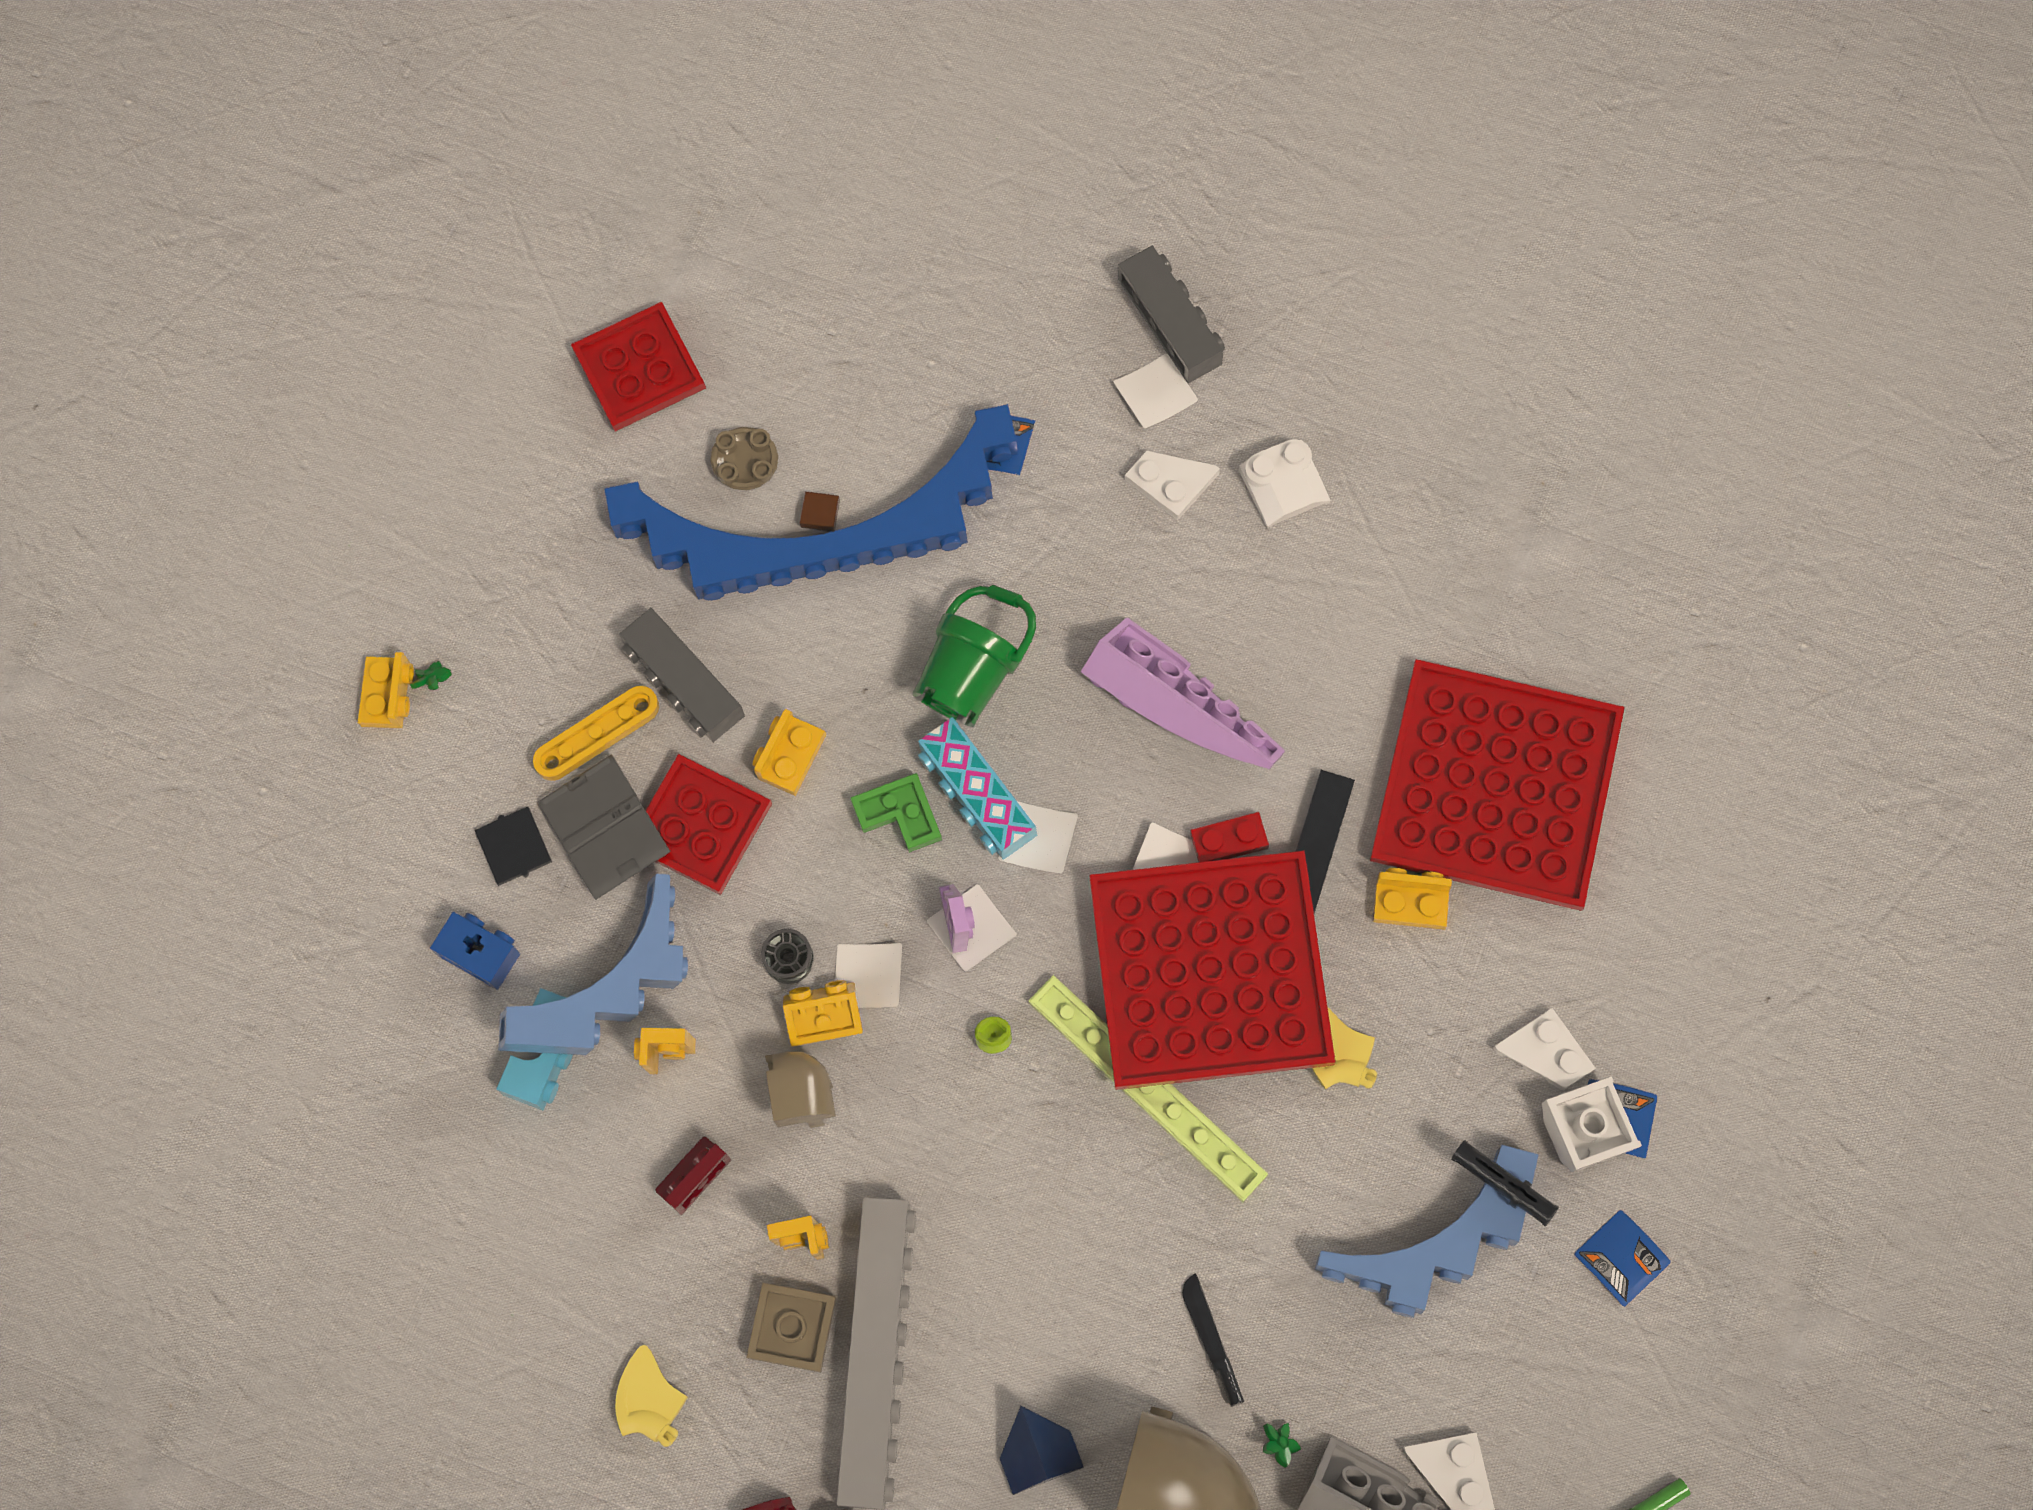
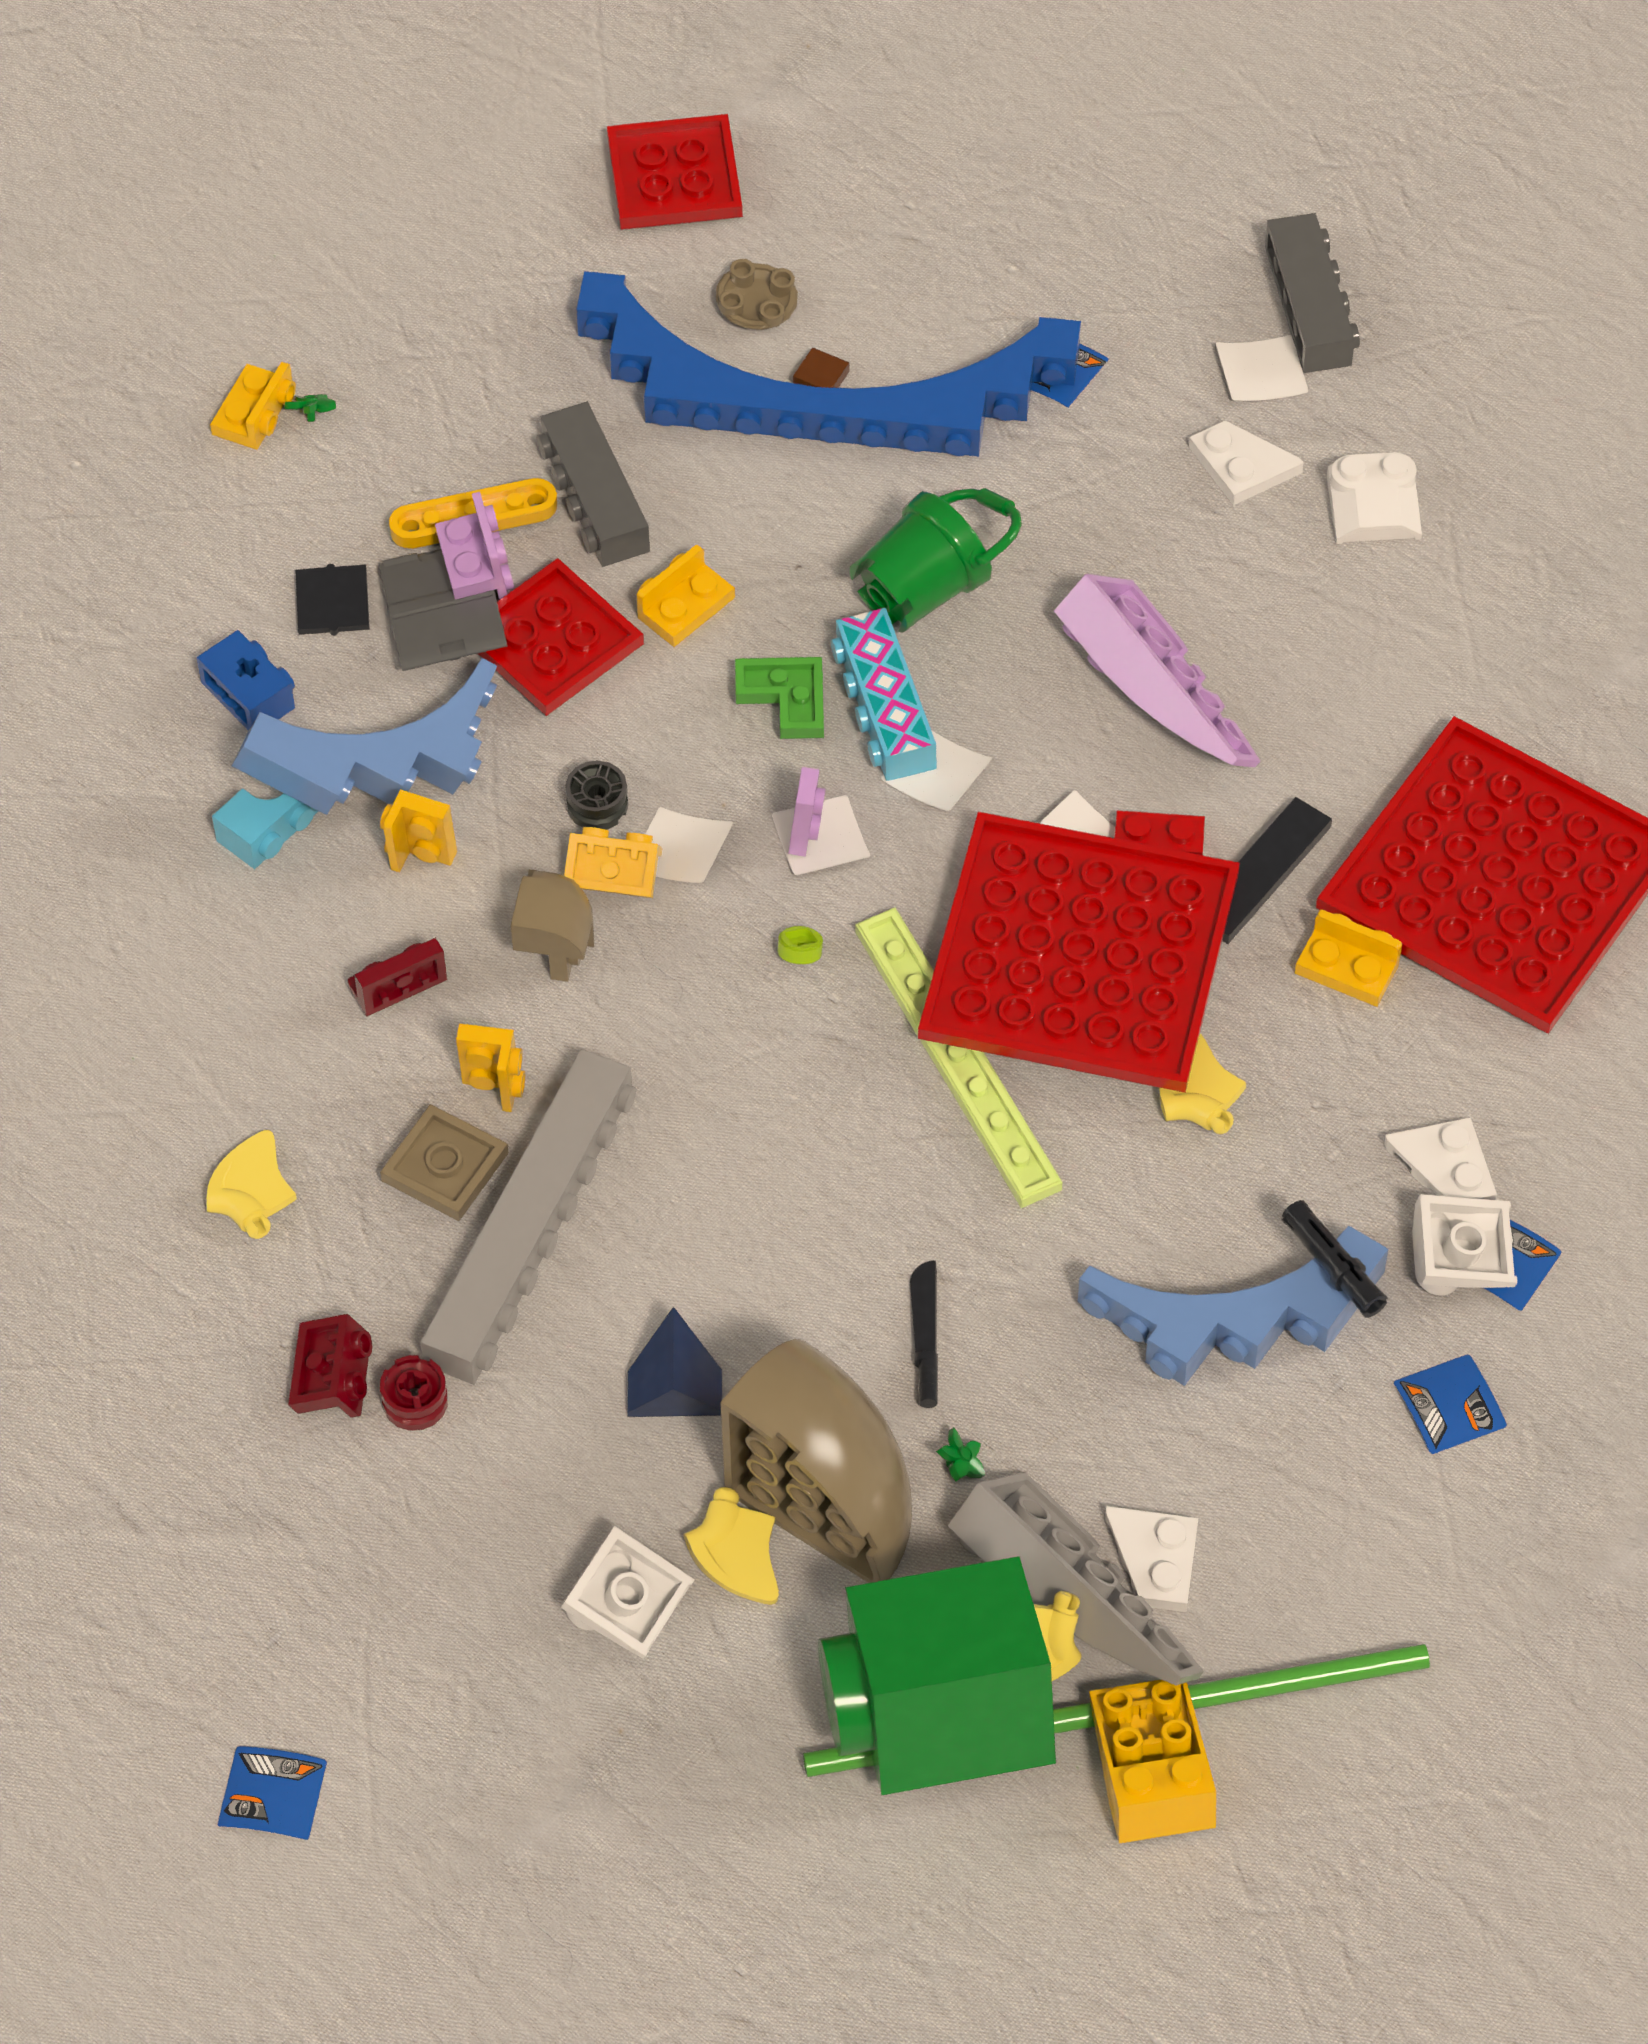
camera: 15 degrees right, 15 degrees down
(613, 777) = (475, 552): none -> lavender bracket

